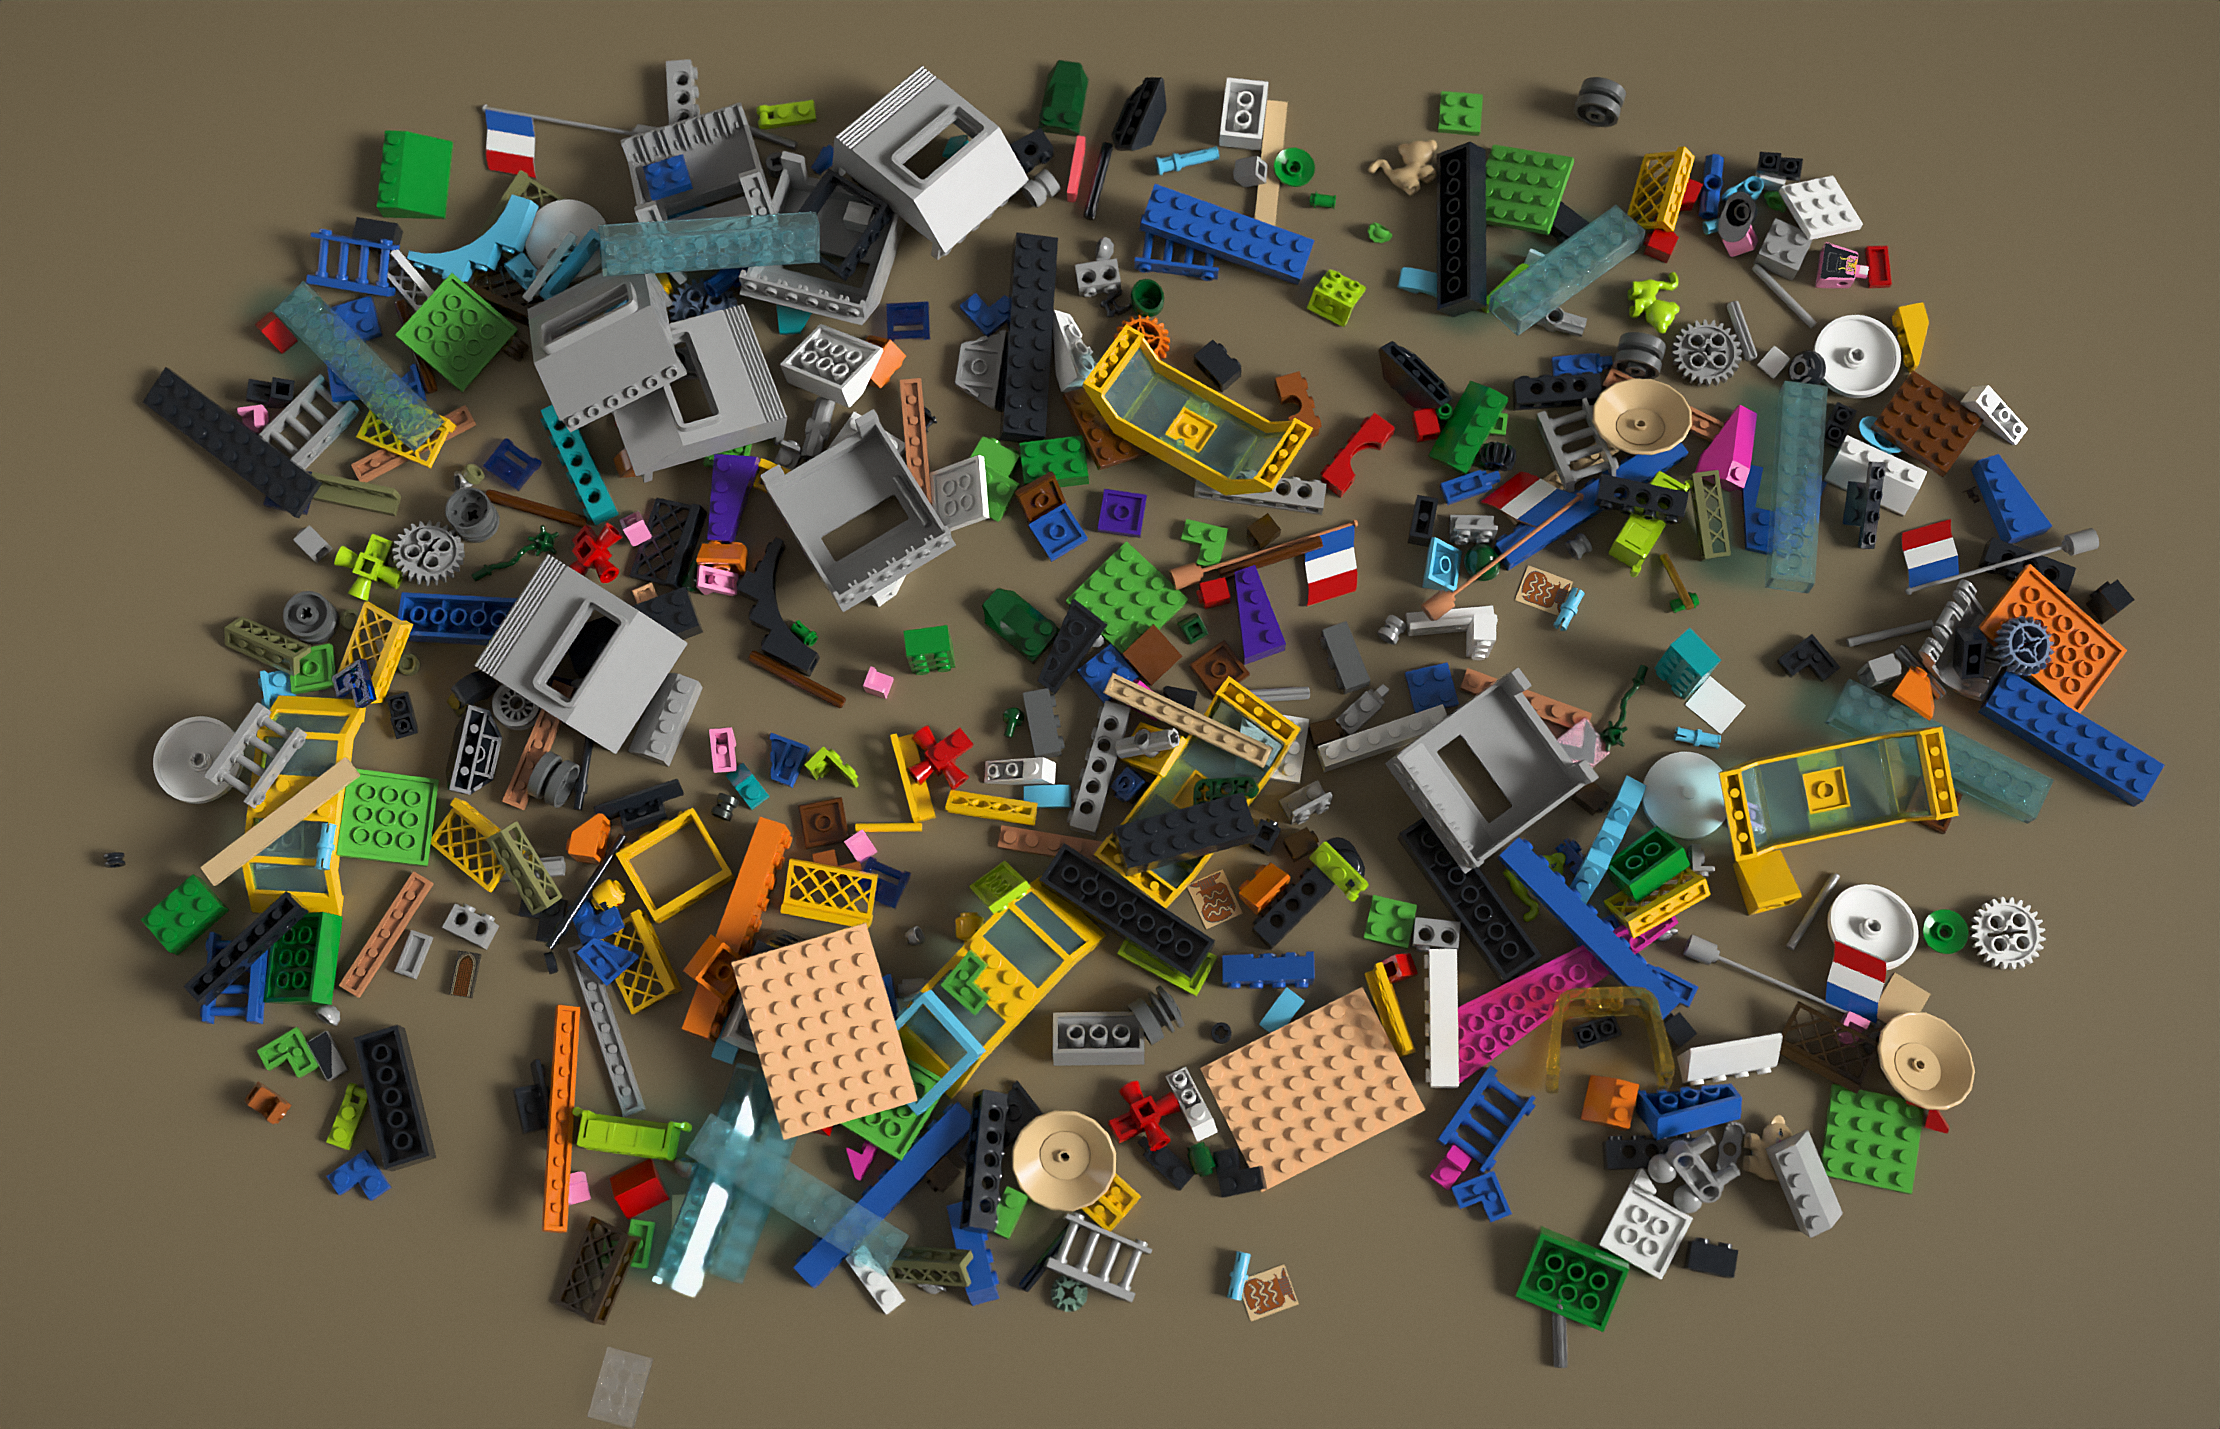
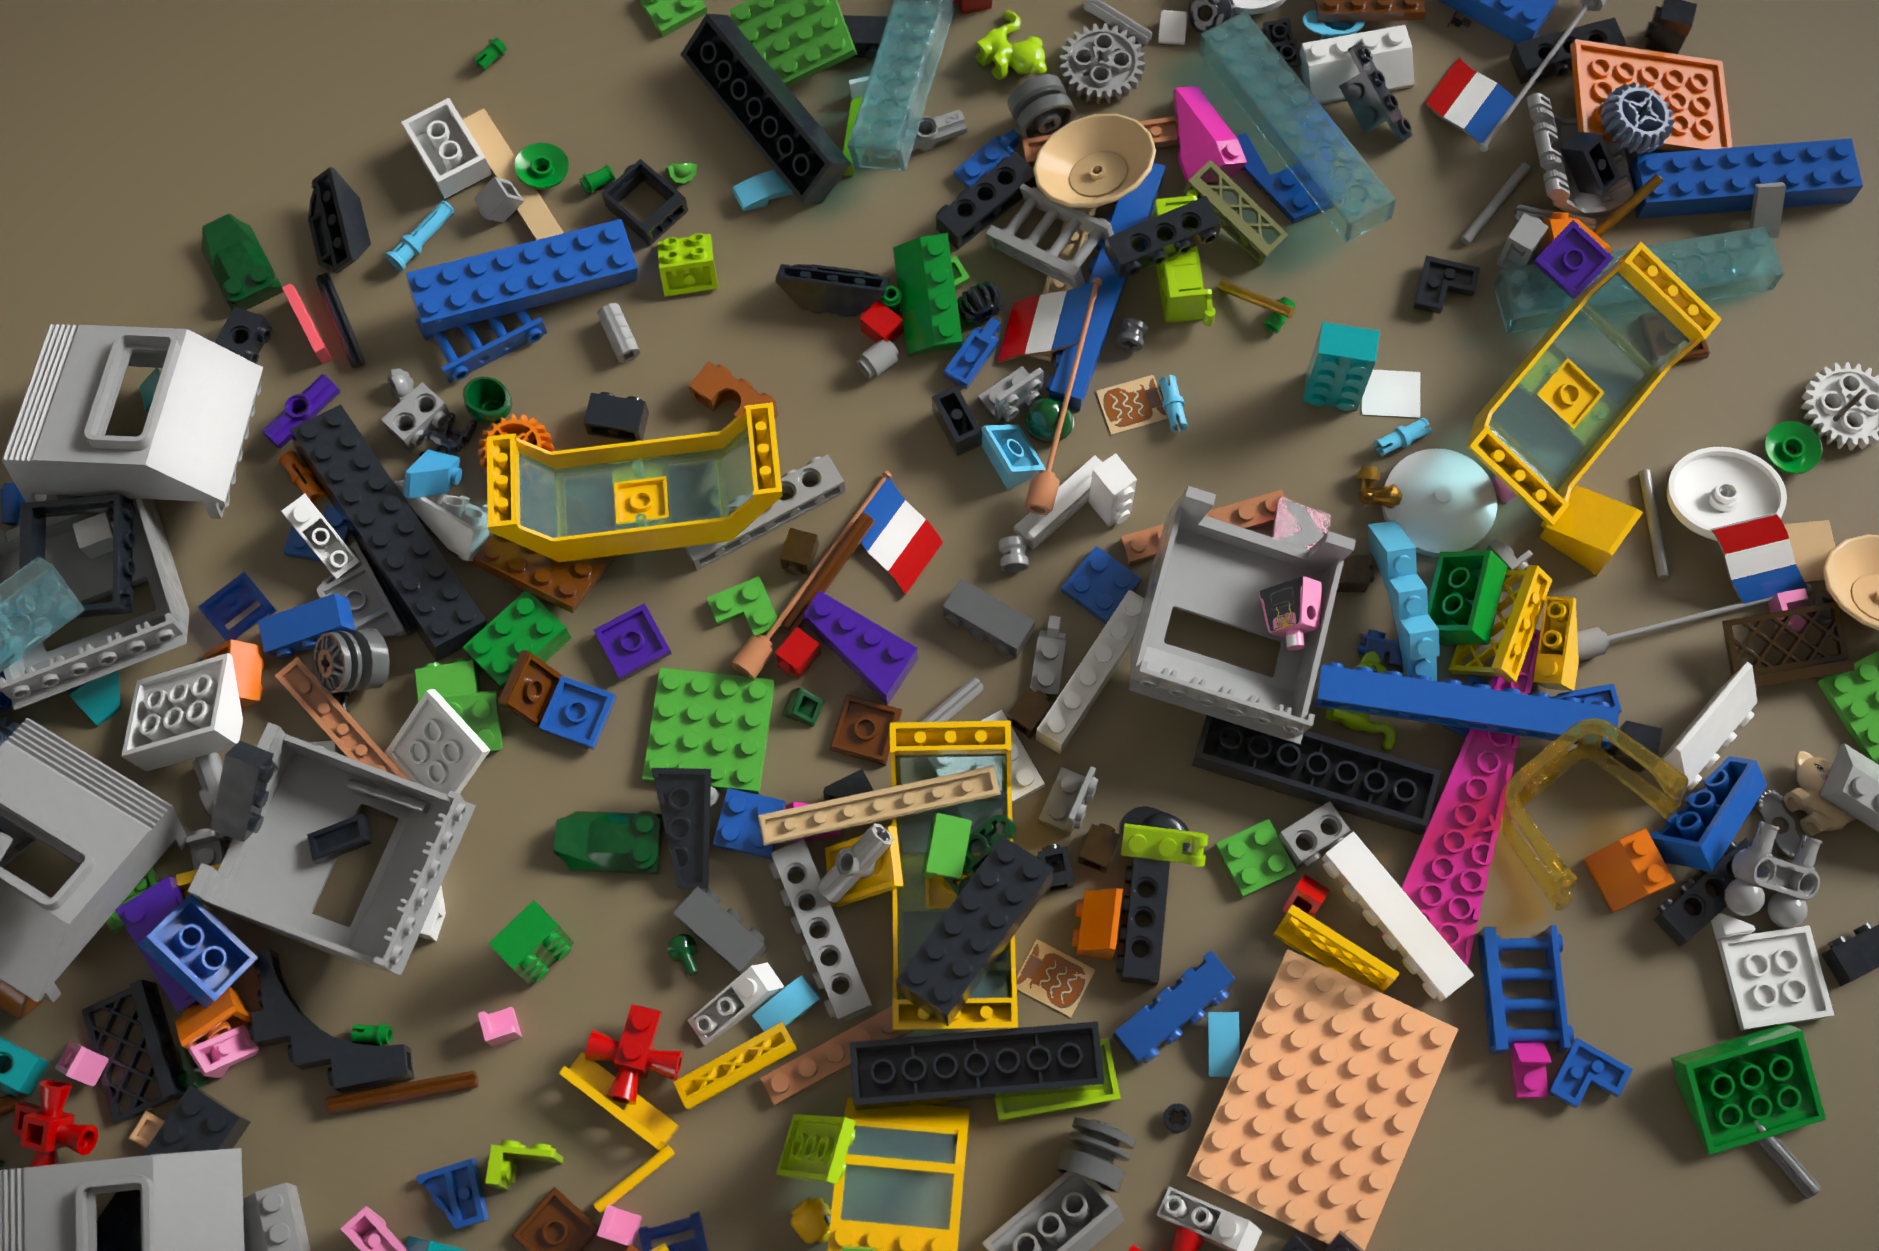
camera: 40 degrees left, 5 degrees down
(742, 513) = (198, 951): none -> blue brick
(831, 438) = (242, 791): none -> black brick
(866, 506) = (339, 838): none -> black tile
(939, 363) = (303, 625): none -> blue brick
(949, 403) = (351, 660): none -> dark grey wheel
(986, 312) = (320, 536): none -> white slope
(1003, 254) = (292, 464): none -> orange pin
(1043, 186) = (282, 369): light grey wheel -> none
(1046, 222) = (313, 399): none -> dark purple piece
(1079, 322) = (432, 475): none -> dark azure slope
(1101, 303) = (440, 439): none -> black piece
(1129, 786) = (868, 925): dark blue brick -> none
(1151, 655) = (781, 767): reddish brown tile -> none
(1208, 774) = (946, 846): none -> bright green panel
(1259, 312) = (618, 332): none -> light grey axle
(1319, 67) = (490, 53): none -> green pin
(1342, 256) = (662, 218): none -> black window
(1372, 435) = (835, 374): red arch -> none
(1406, 445) = (877, 358): none -> light grey brick
(1416, 157) = (663, 72): tan animal -> none
(1530, 791) = (1292, 609): none -> torso
(1596, 1031) = (1554, 808): black slope -> none
(1613, 734) = (1319, 495): dark green piece -> none
(1653, 766) = (1386, 496): none -> pearl gold piece
(1678, 938) = (1558, 645): none -> yellow slope
(1898, 706) = (1573, 259): none -> dark purple plate
(1970, 699) = (1628, 205): none -> pearl gold bar
(2066, 769) = (1768, 206): none -> light grey tile

